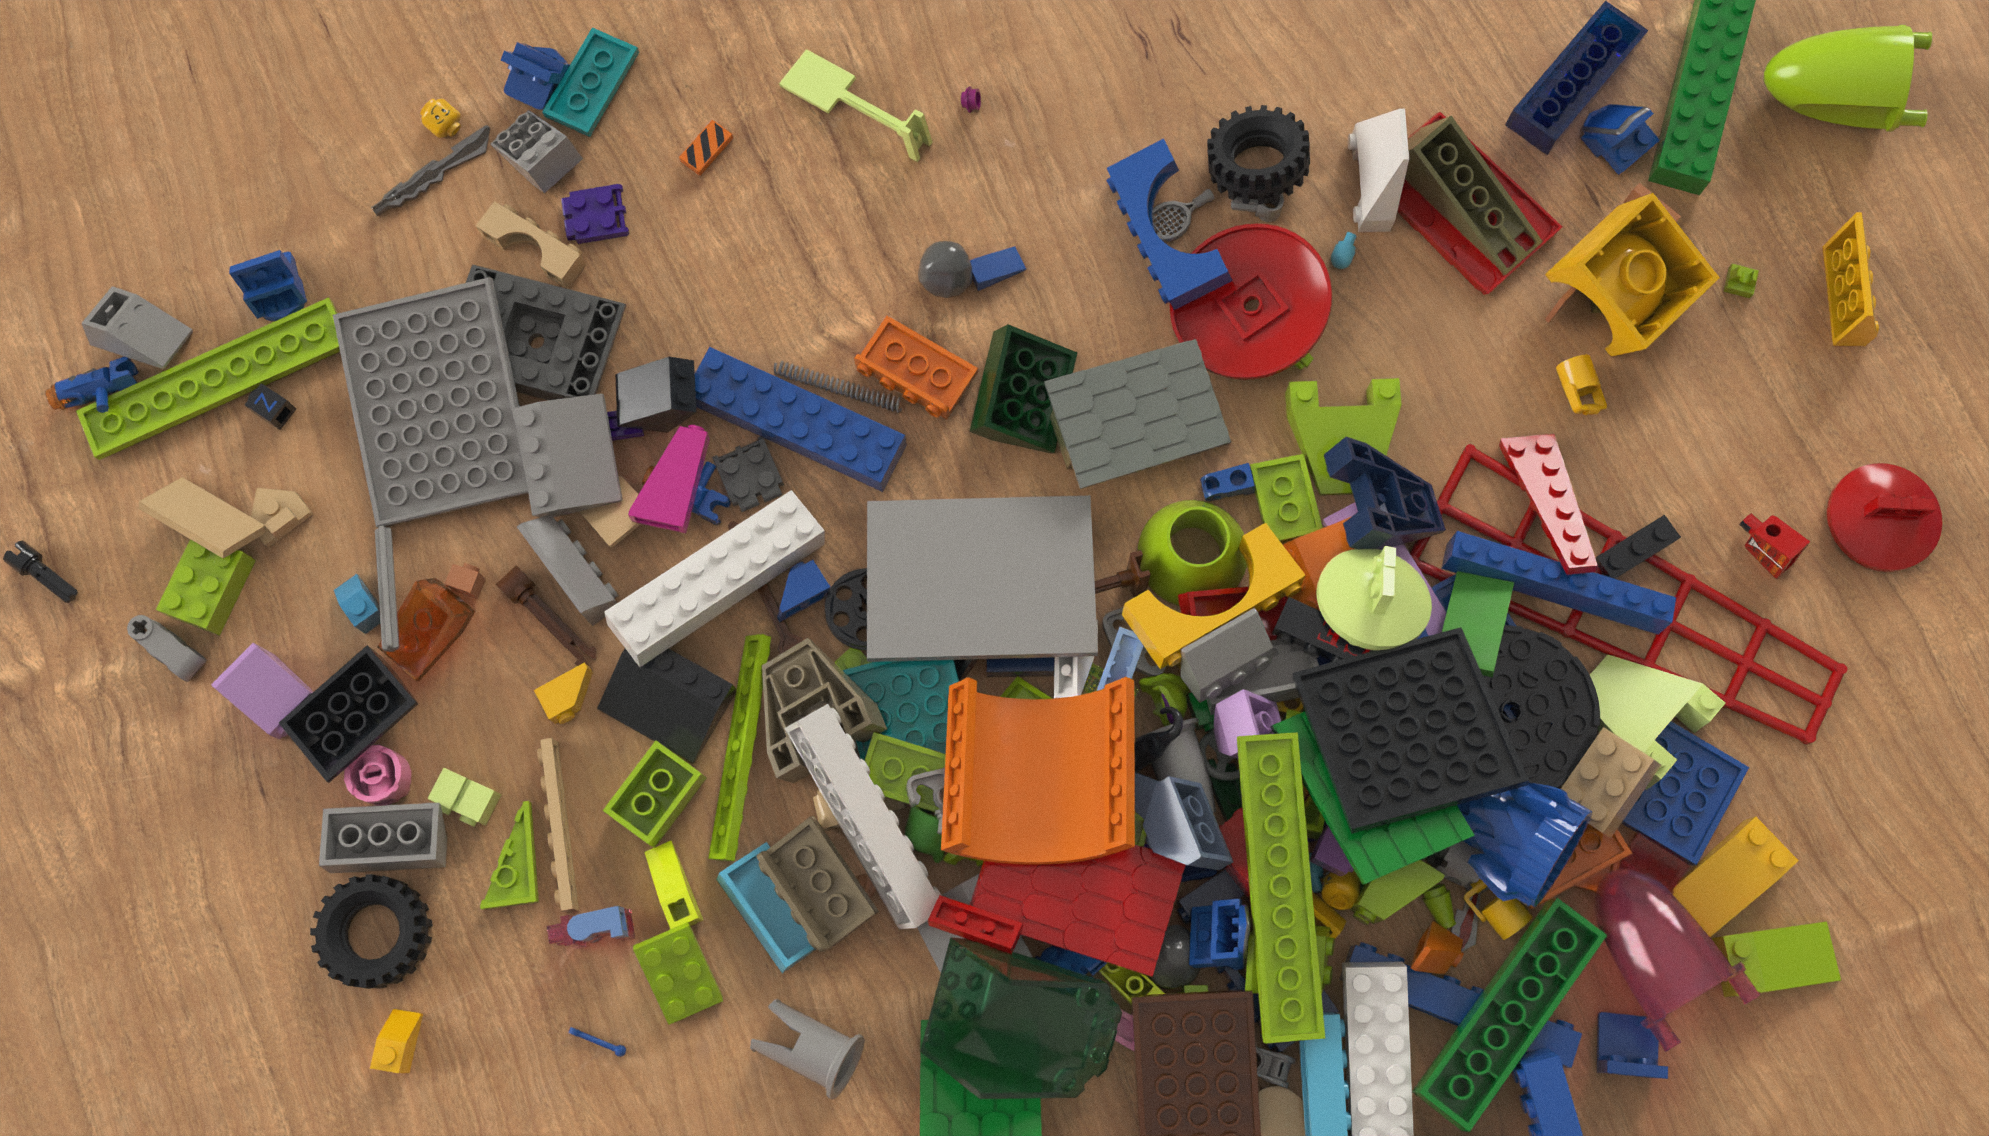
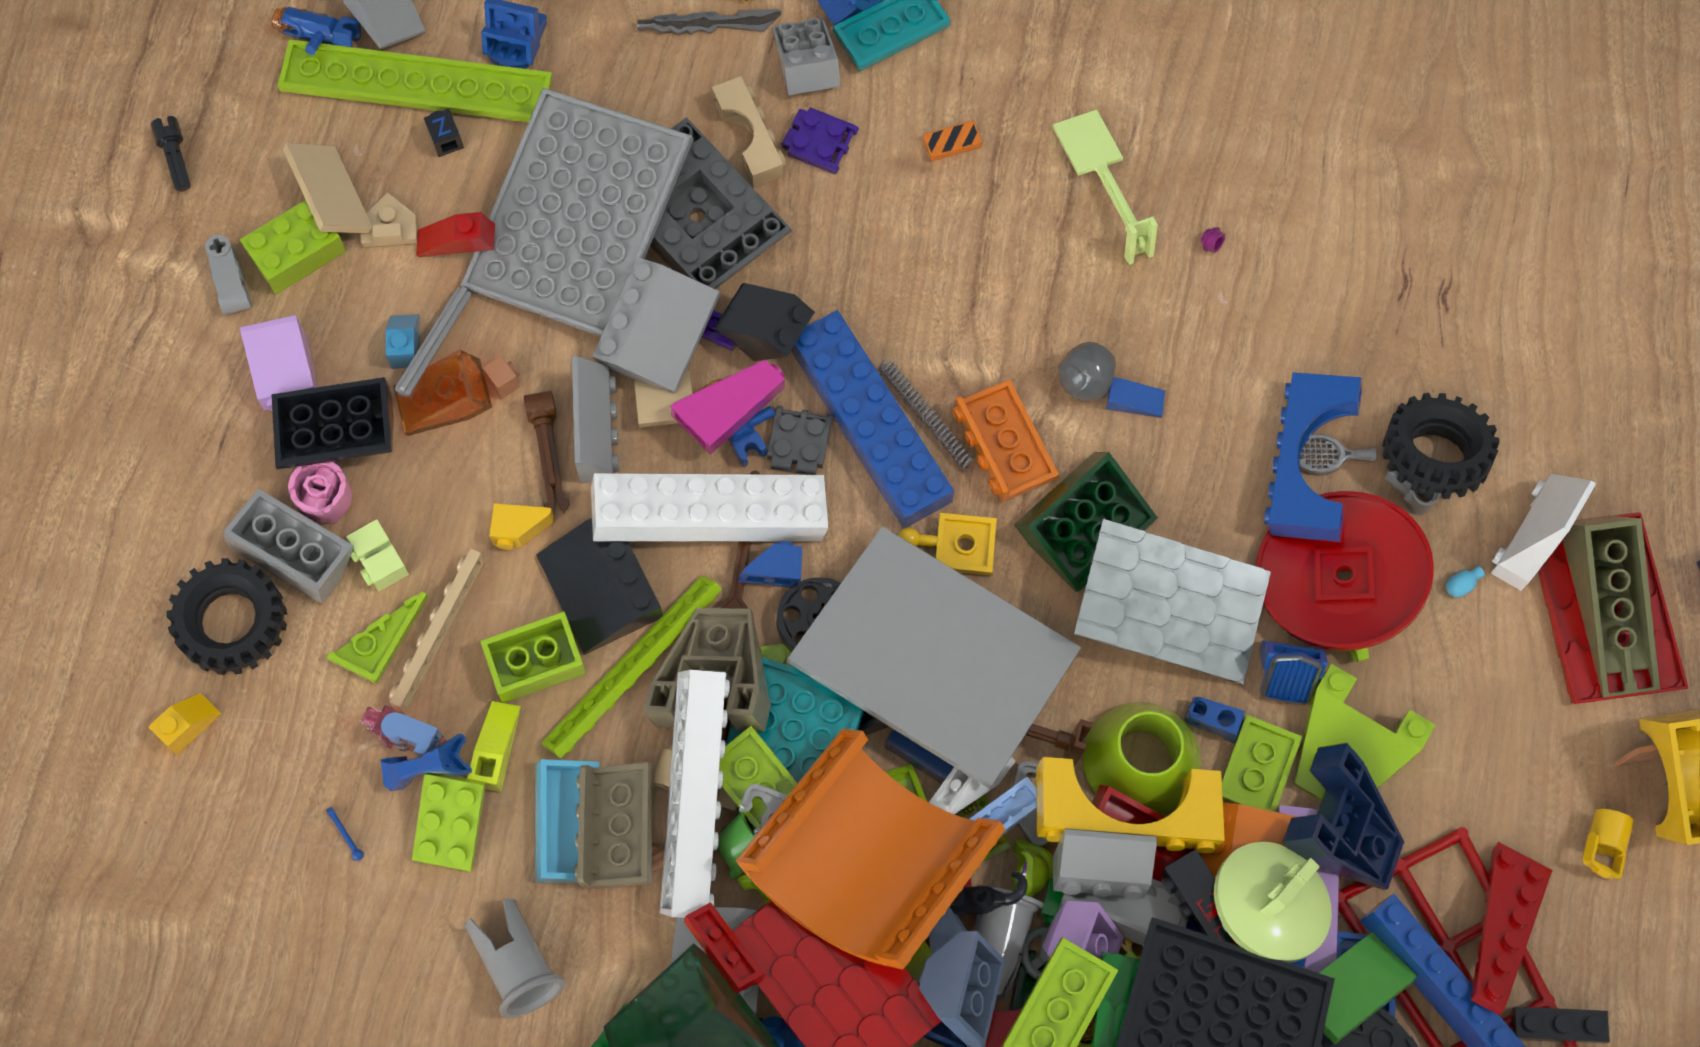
camera: 30 degrees right, 5 degrees down
(343, 487) = (456, 235): none -> red slope
(640, 929) = (442, 760): none -> blue animal
(922, 466) = (952, 529): none -> yellow plate
(1261, 407) = (1290, 672): none -> blue piece

